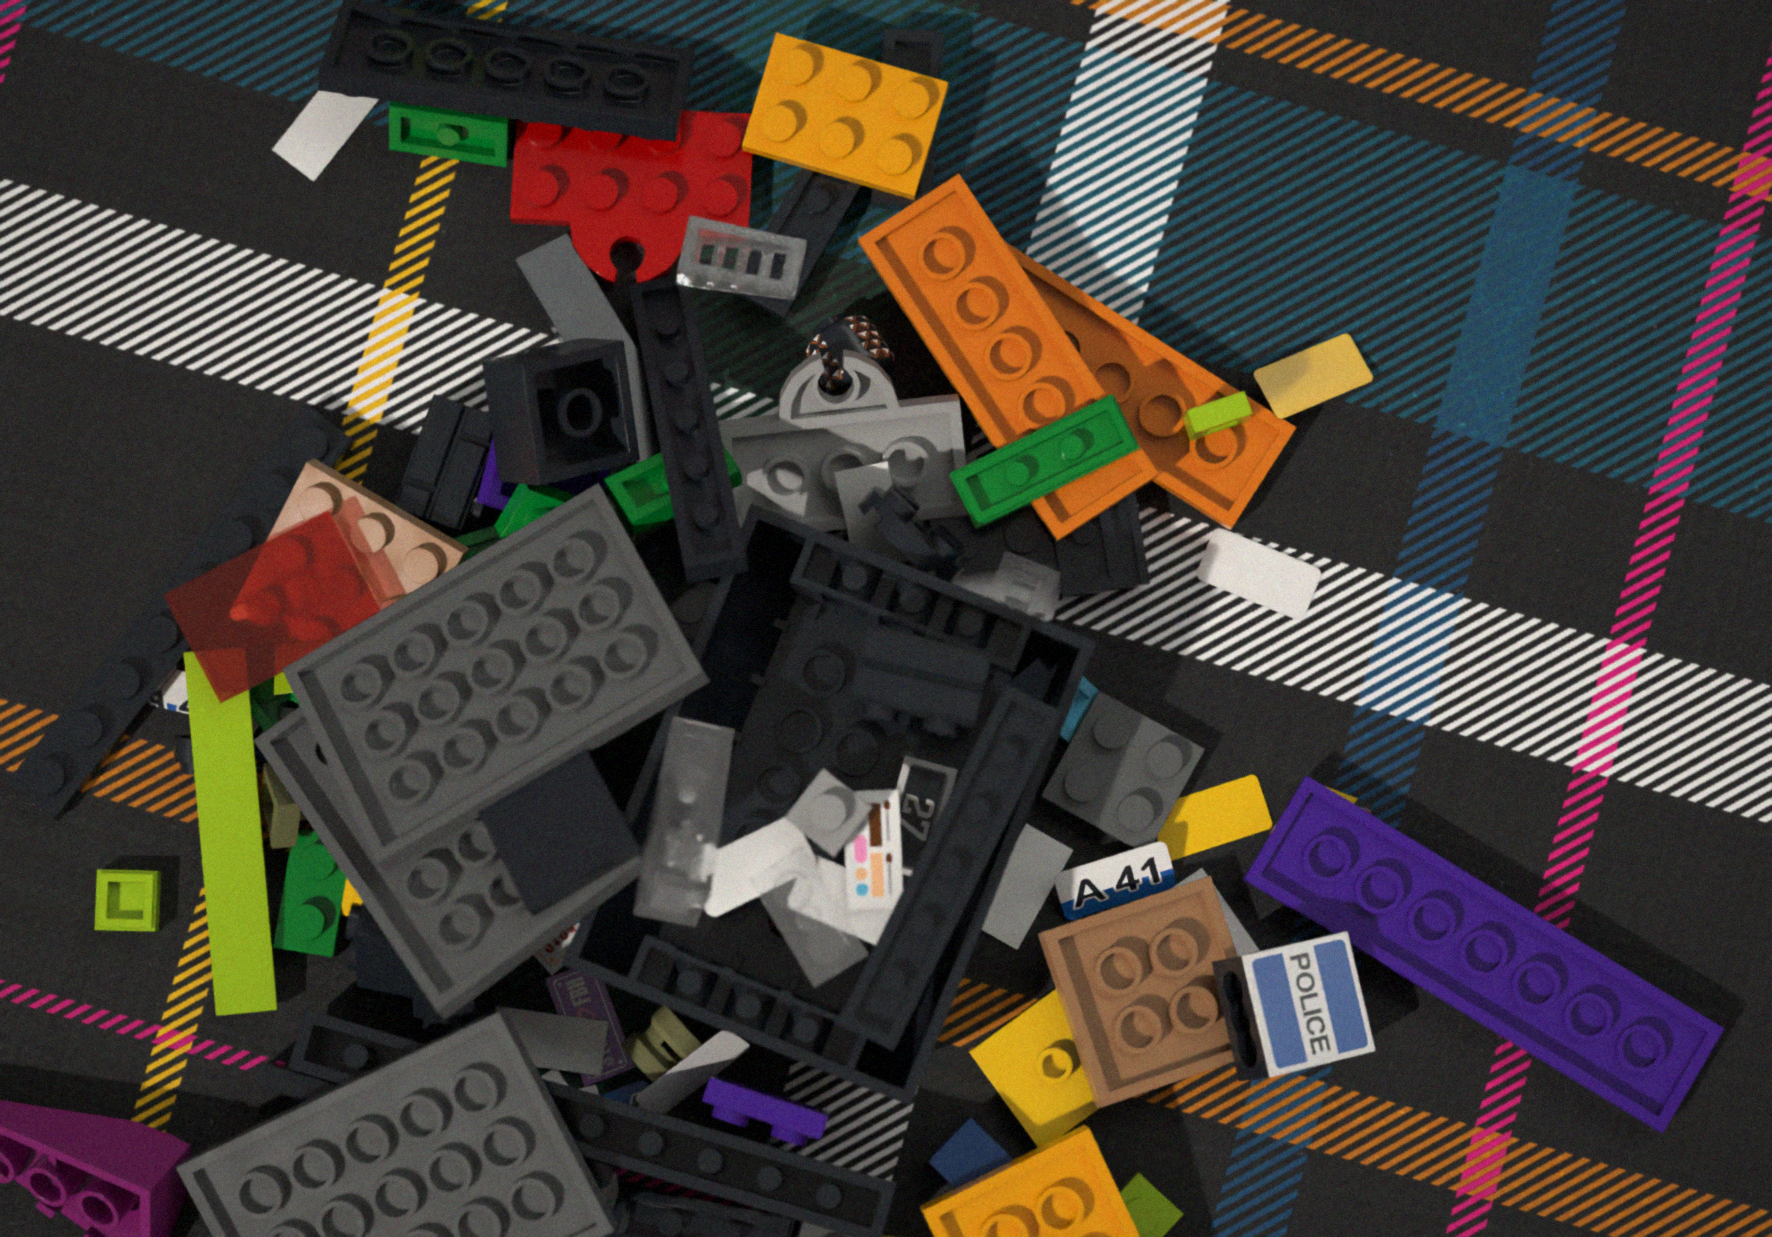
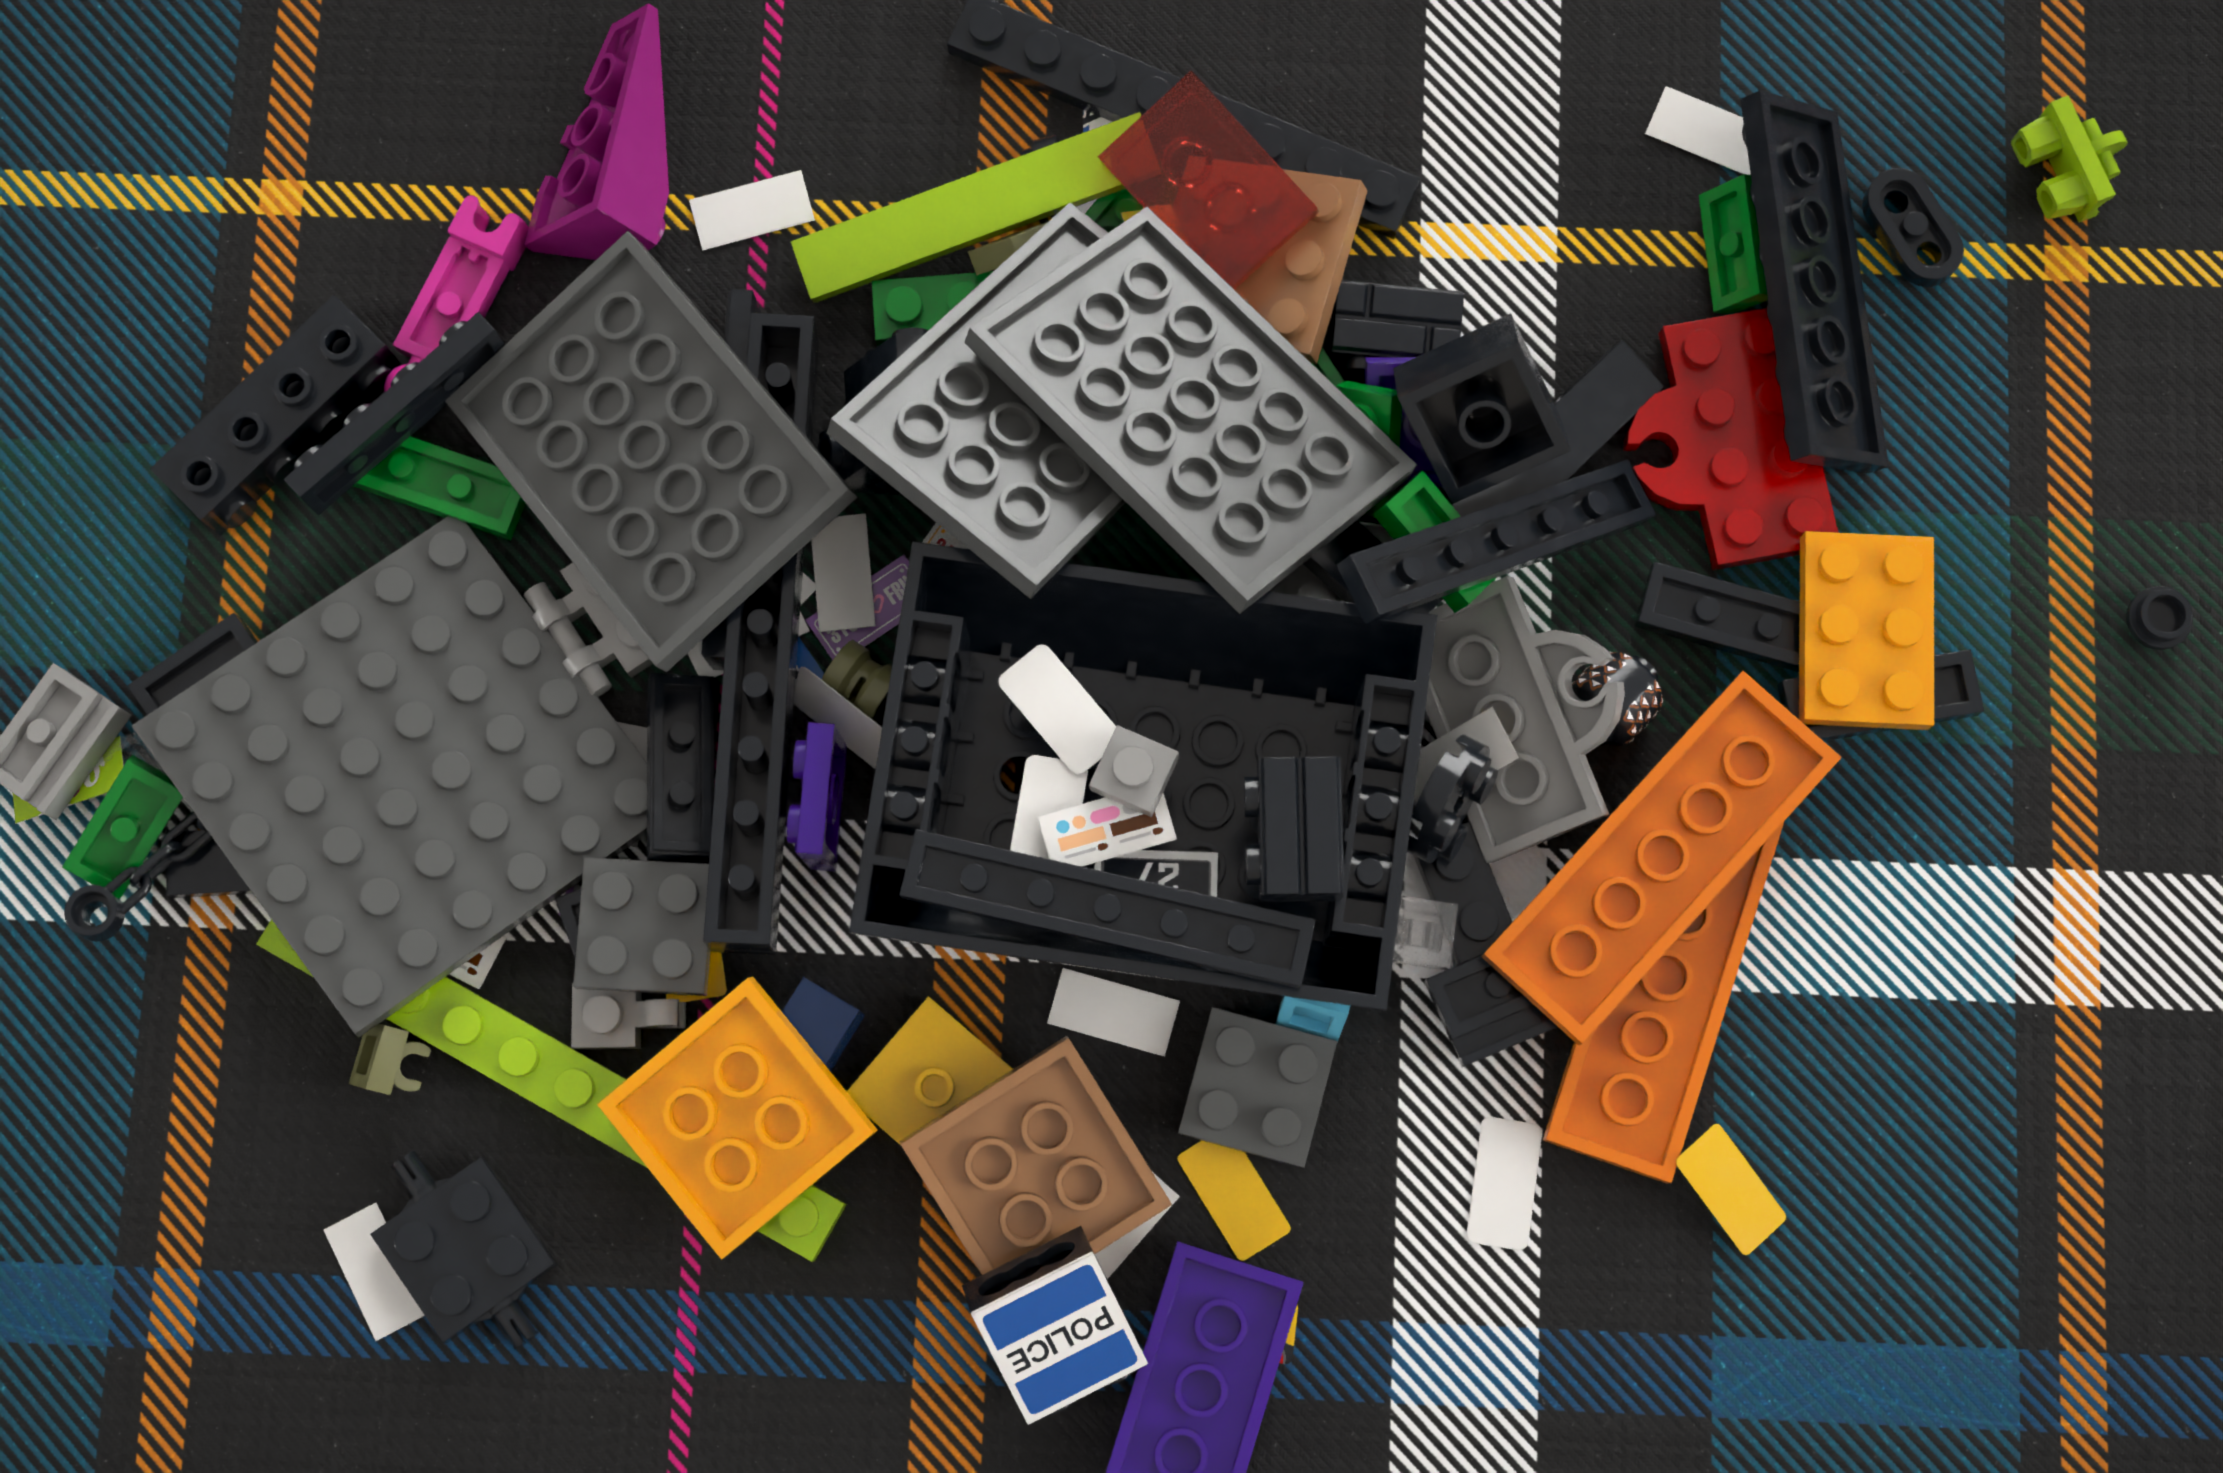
camera: 80 degrees right, 5 degrees down
(127, 900) = (885, 135): lime tile -> none
(167, 1047) = (751, 210): none -> white sticker
(560, 832) = (1044, 499): black tile -> none
(685, 823) = (1086, 622): clear slope -> none
(725, 235) = (1706, 537): clear slope -> none
(808, 917) = (1019, 775): clear plate -> none
(1044, 462) = (1562, 918): green tile -> none
(1115, 880) = (1143, 1106): sticker -> none
(1217, 415) = (1661, 1091): lime tile -> none

